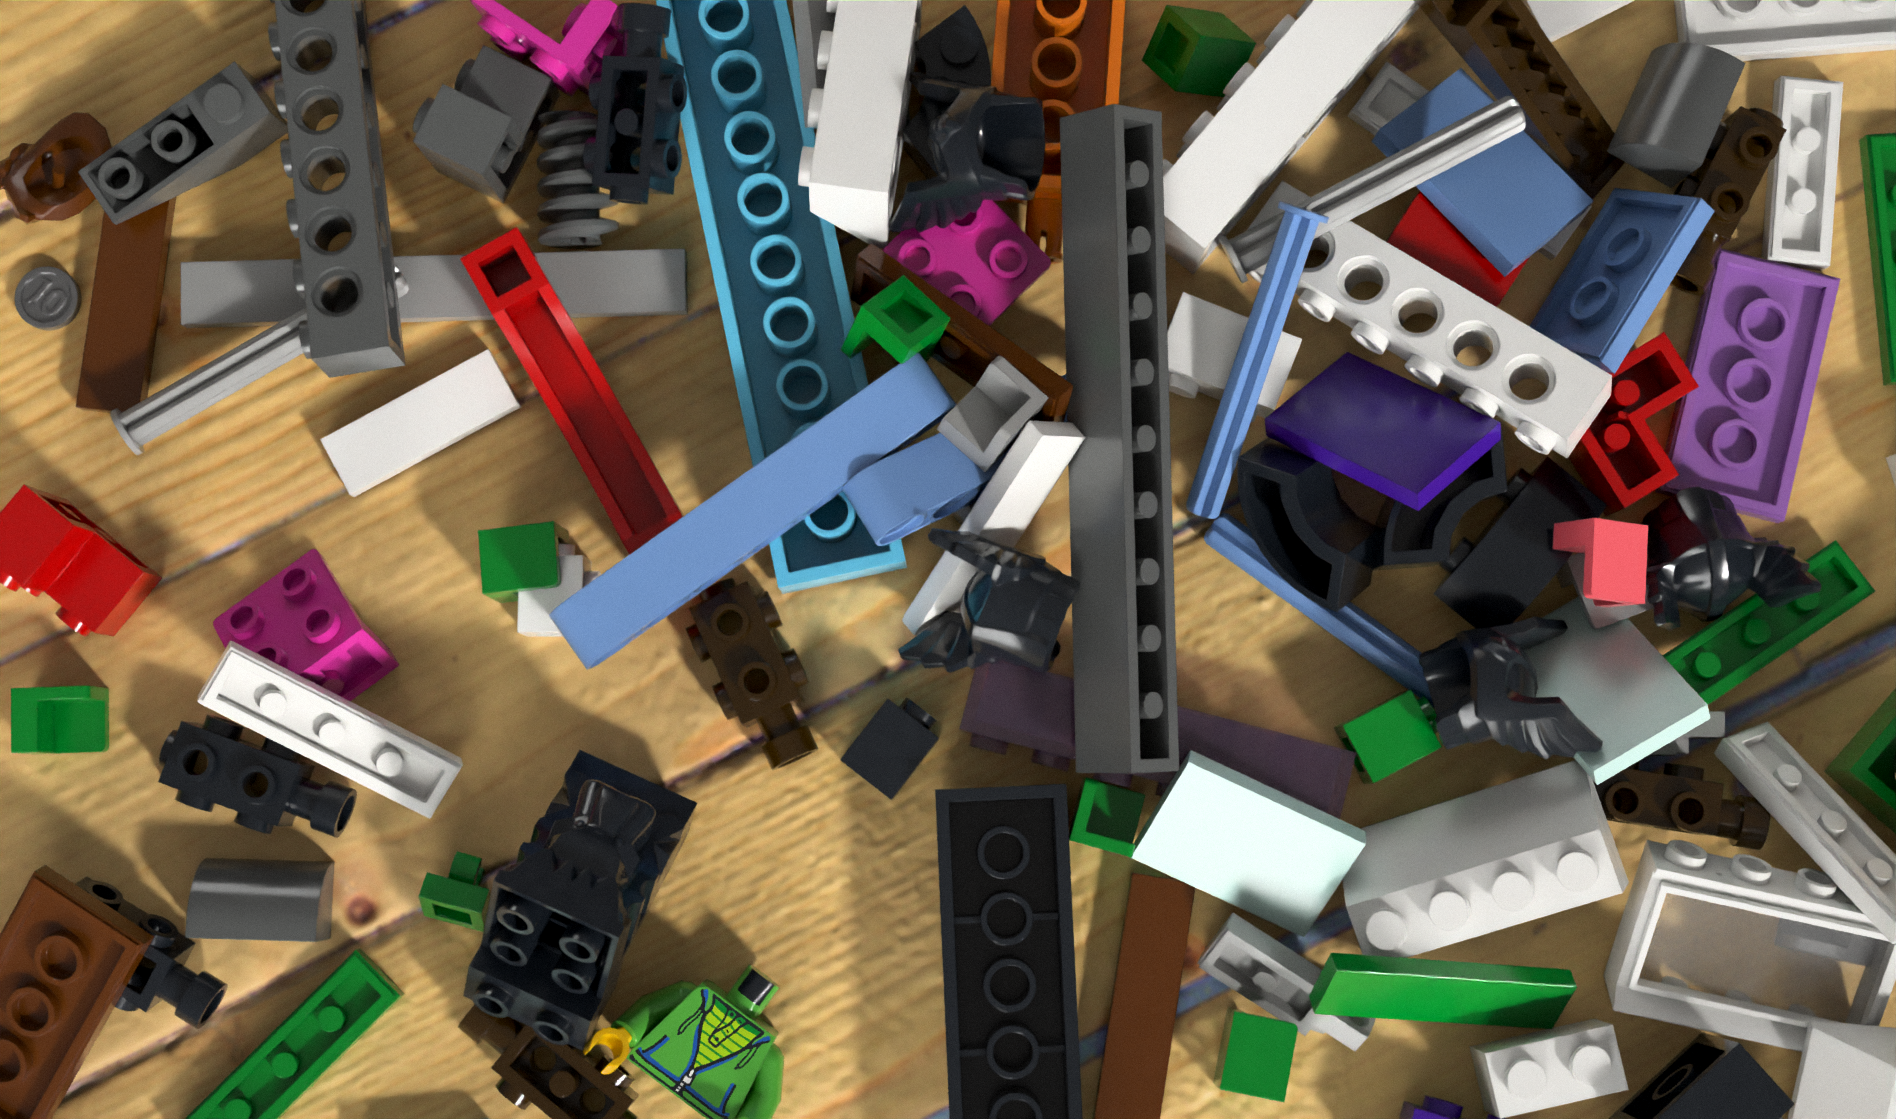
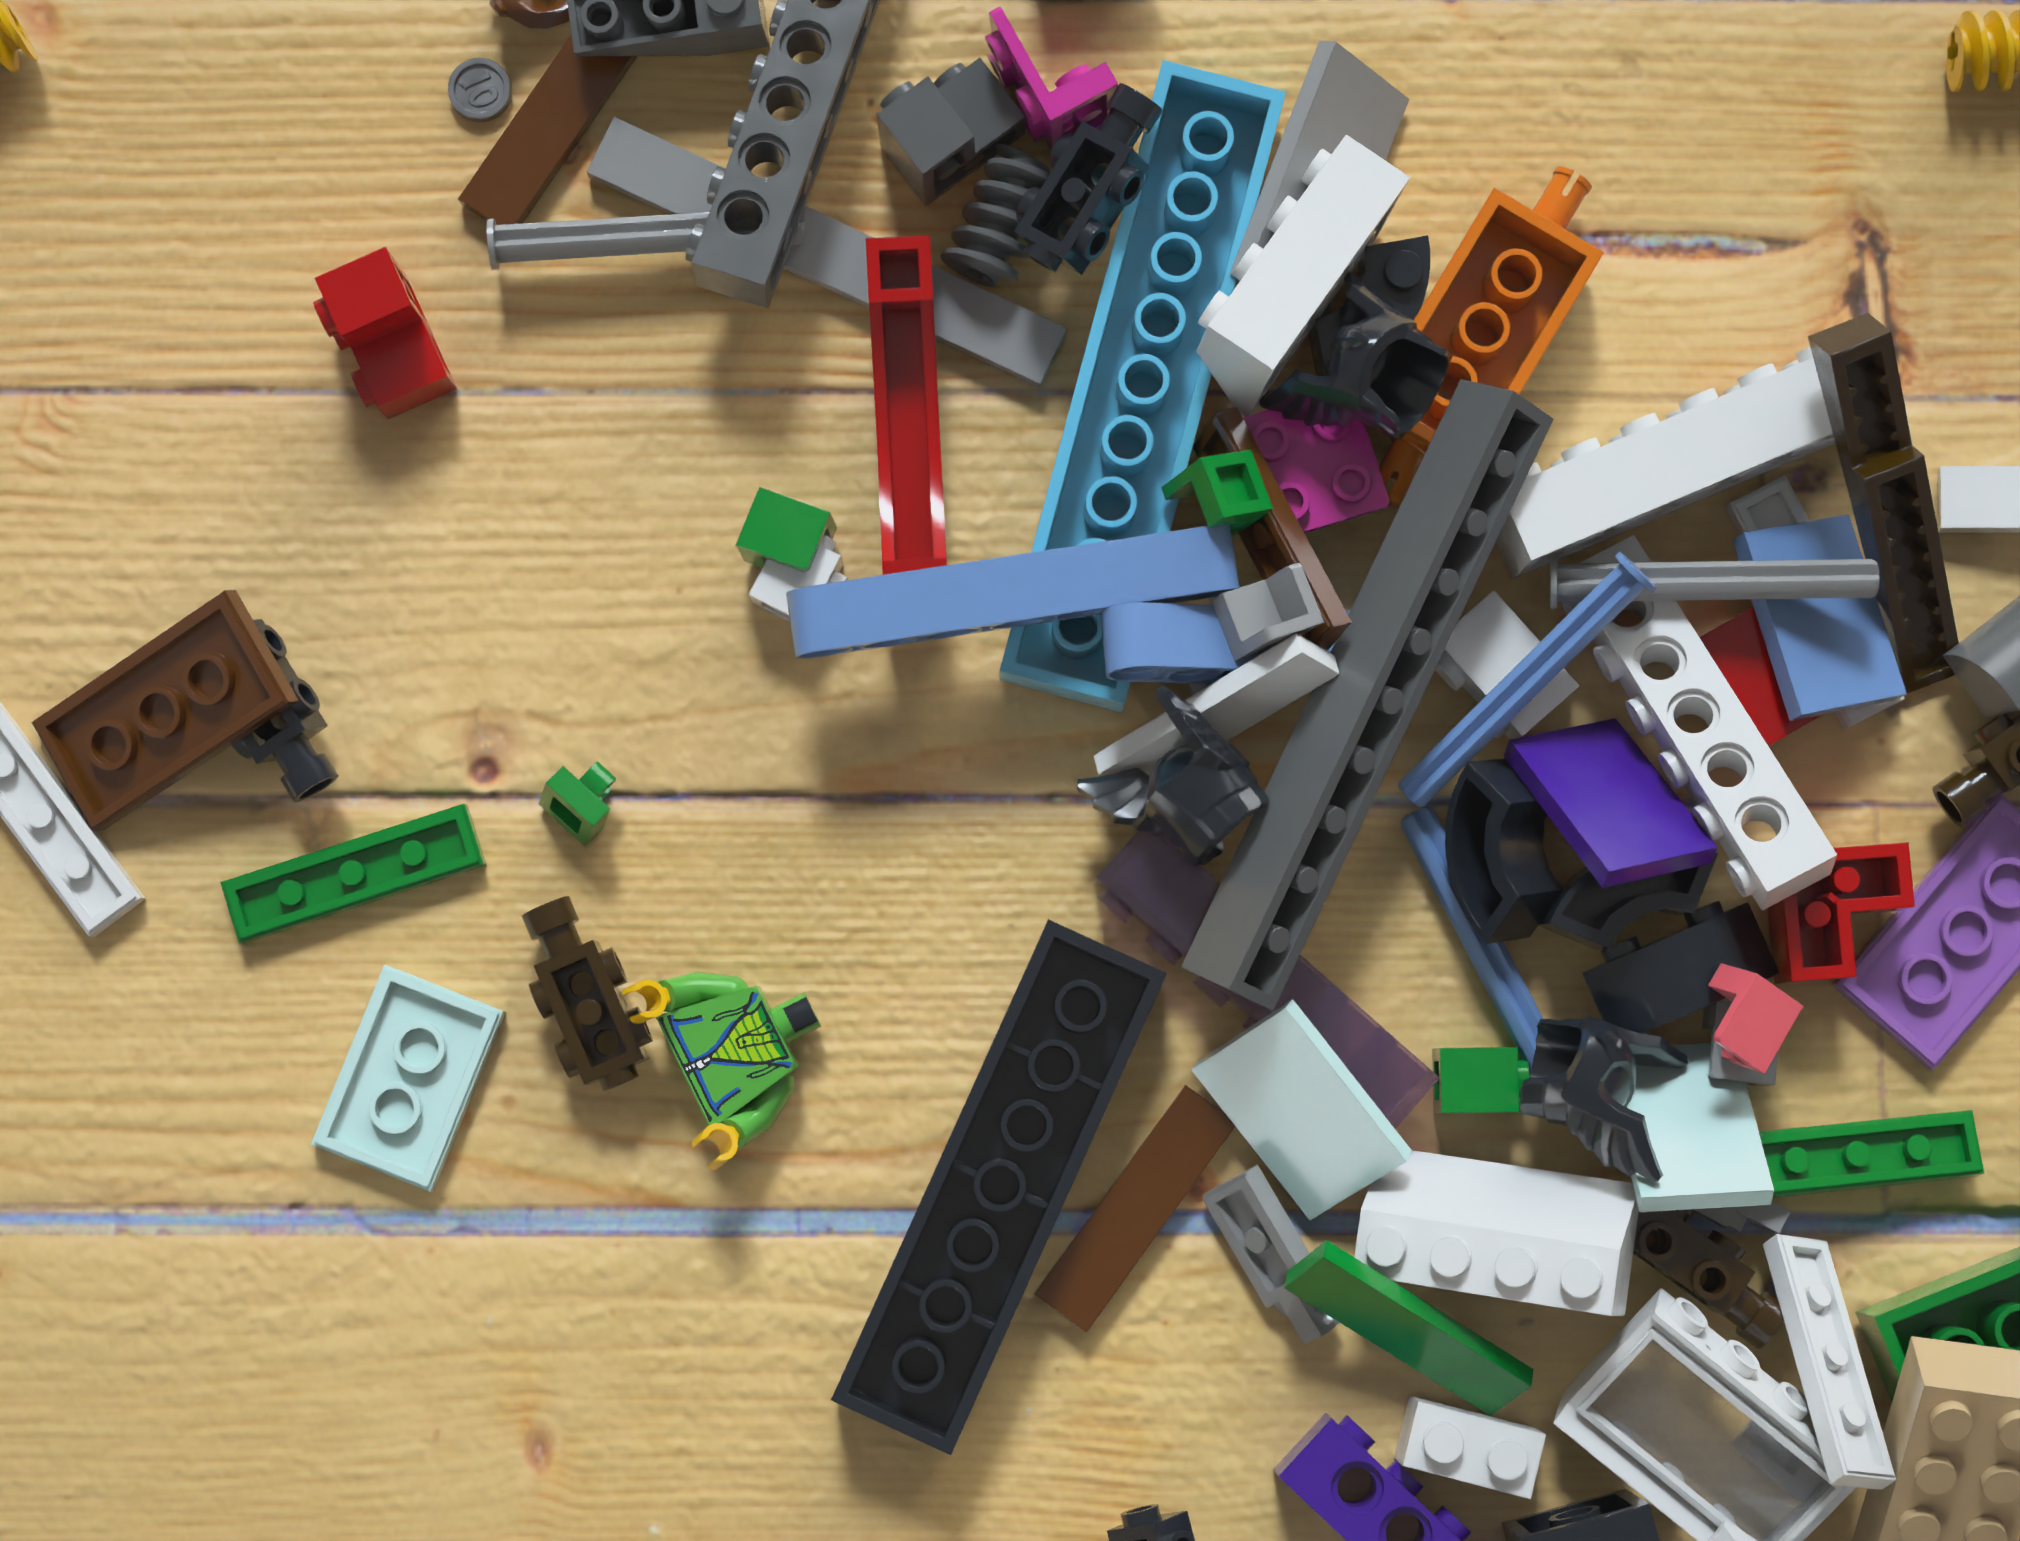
camera: 25 degrees right, 0 degrees up
(59, 720) = (307, 469): green panel -> none
(235, 766) = (437, 591): black brick -> none
(261, 900) = (404, 717): dark grey brick -> none
(309, 628) = (552, 511): dark pink bracket -> none
(329, 729) = (541, 597): white tile -> none
(420, 423) = (754, 366): white tile -> none
(576, 900) = (683, 856): black brick -> none
(750, 650) = (945, 715): dark brown brick -> none
(892, 746) = (1028, 864): black brick -> none
(1106, 817) = (1187, 1024): green panel -> none
(1197, 50) = (1617, 379): green panel -> none
(1255, 1055) = (1214, 1301): green panel -> none
(1620, 273) = (1896, 771): medium blue tile -> none
(1707, 558) = (1845, 1066): black helmet -> none

